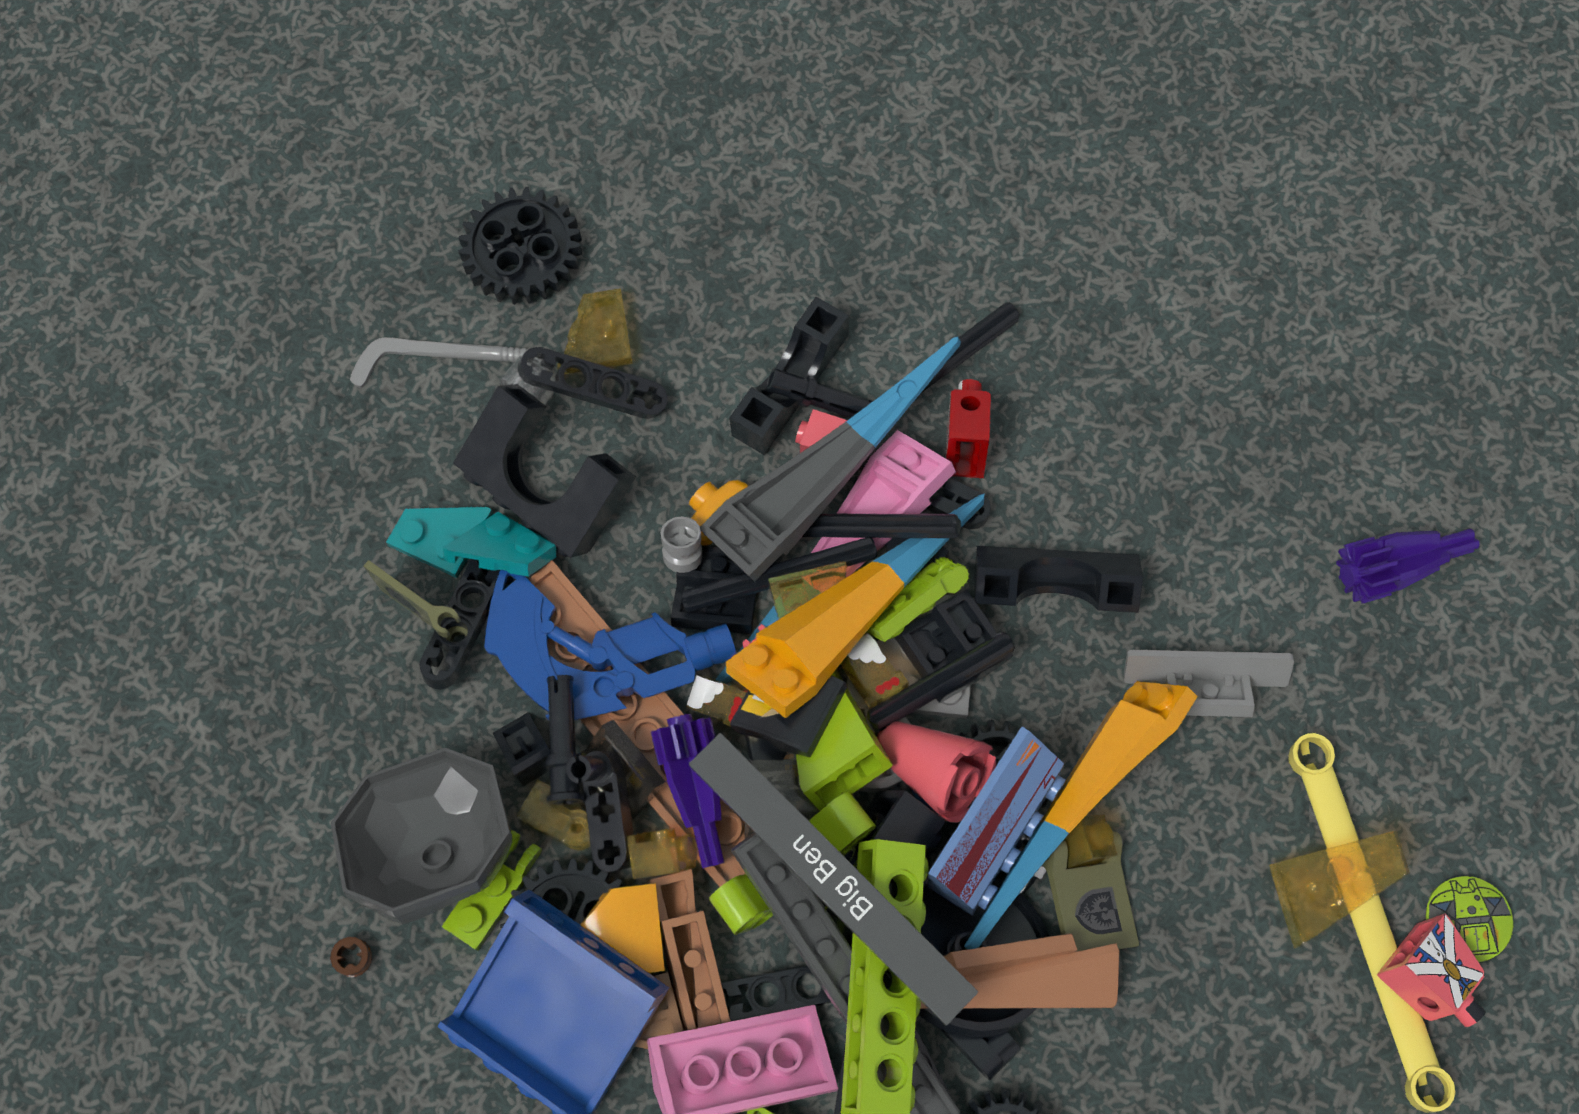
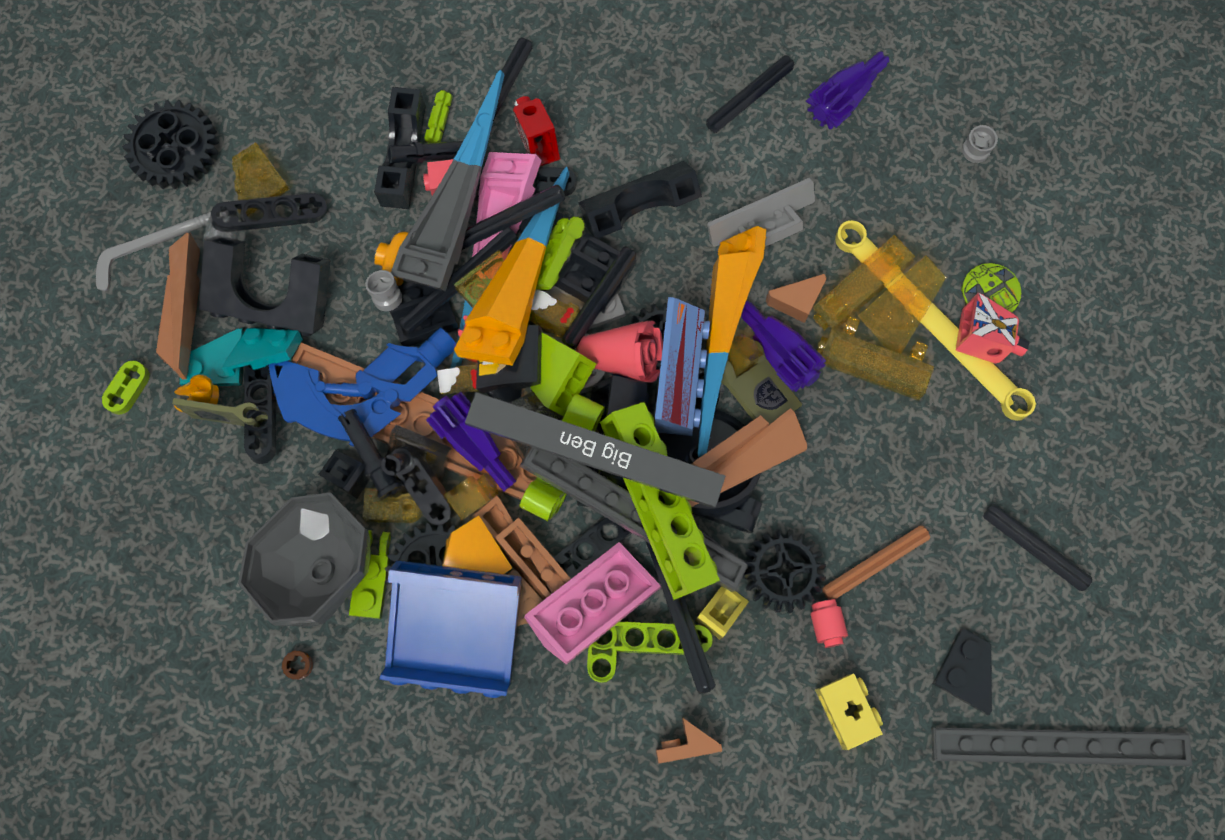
camera: 30 degrees left, 5 degrees up
(318, 509) = (124, 386): none -> lime beam
(405, 564) = (200, 390): none -> light orange piece
(433, 447) = (179, 305): none -> nougat wedge
(856, 357) = (438, 117): none -> lime axle
(1150, 865) = (784, 349): none -> dark purple piece
(1200, 803) = (796, 298): none -> nougat slope
(1260, 938) = (876, 364): none -> clear yellow brick
(1270, 506) = (750, 94): none -> black axle
(1293, 827) = (862, 284): none -> clear yellow brick
(1555, 709) = (979, 143): none -> light grey wheel

